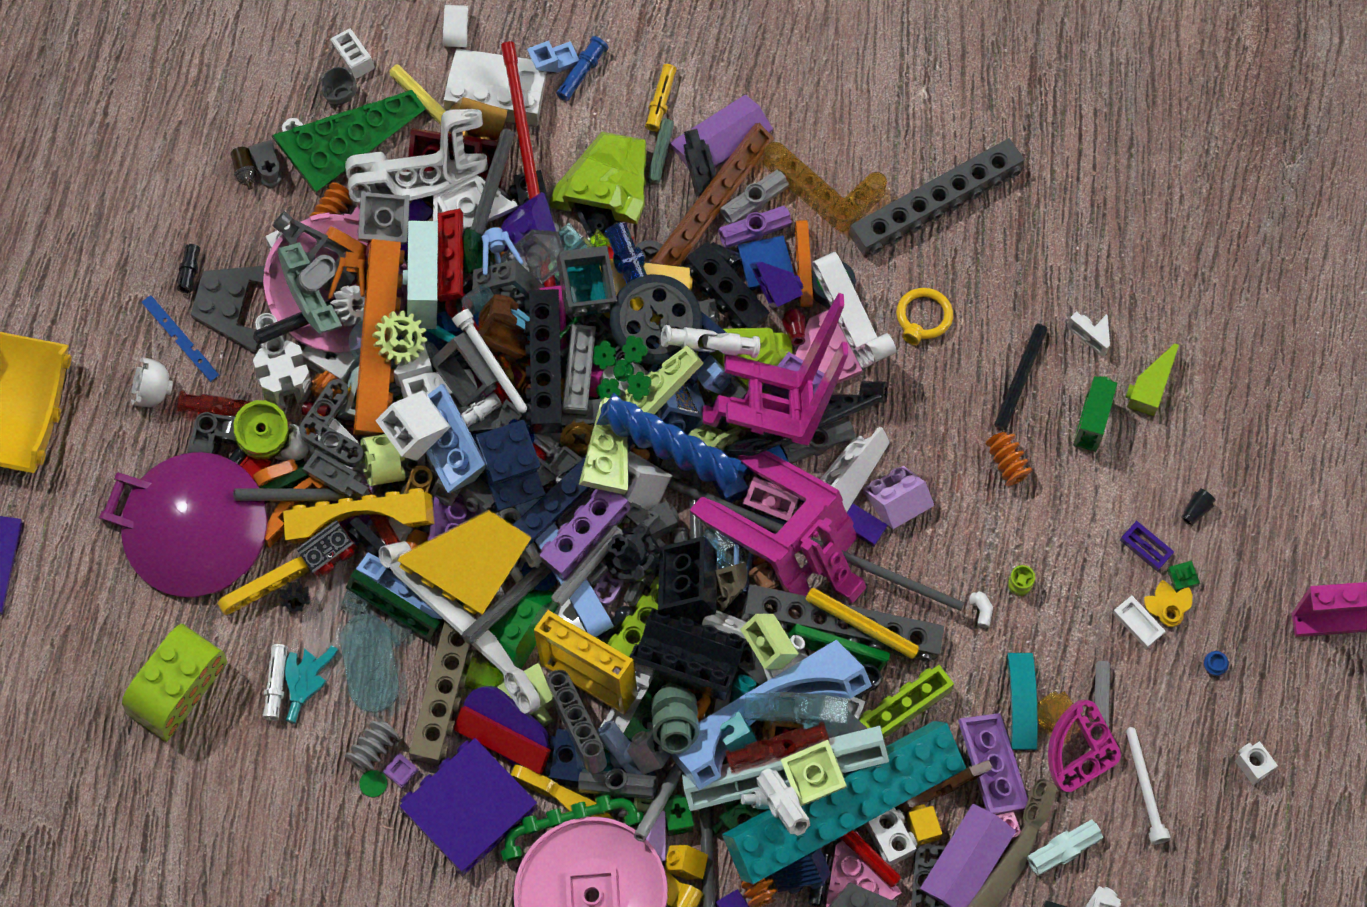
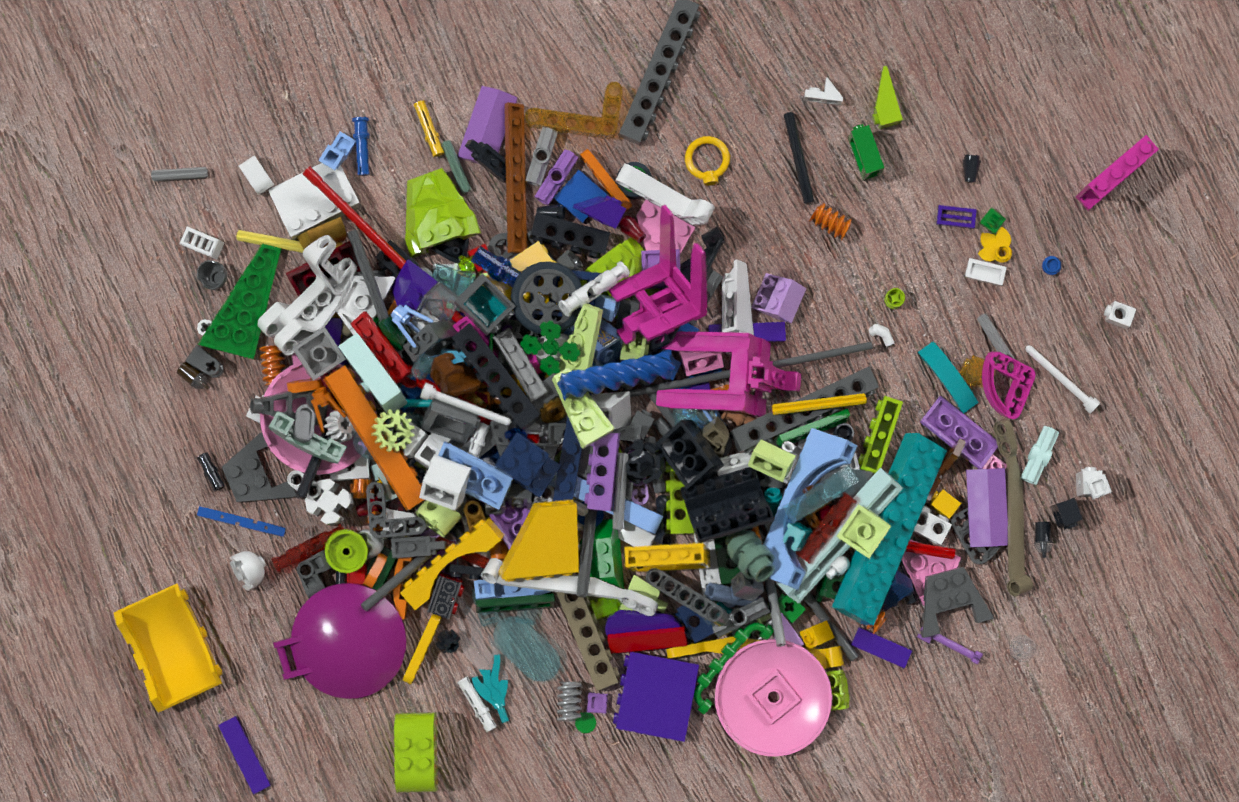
camera: 30 degrees left, 15 degrees up
(783, 802) = (858, 563): white piece -> none

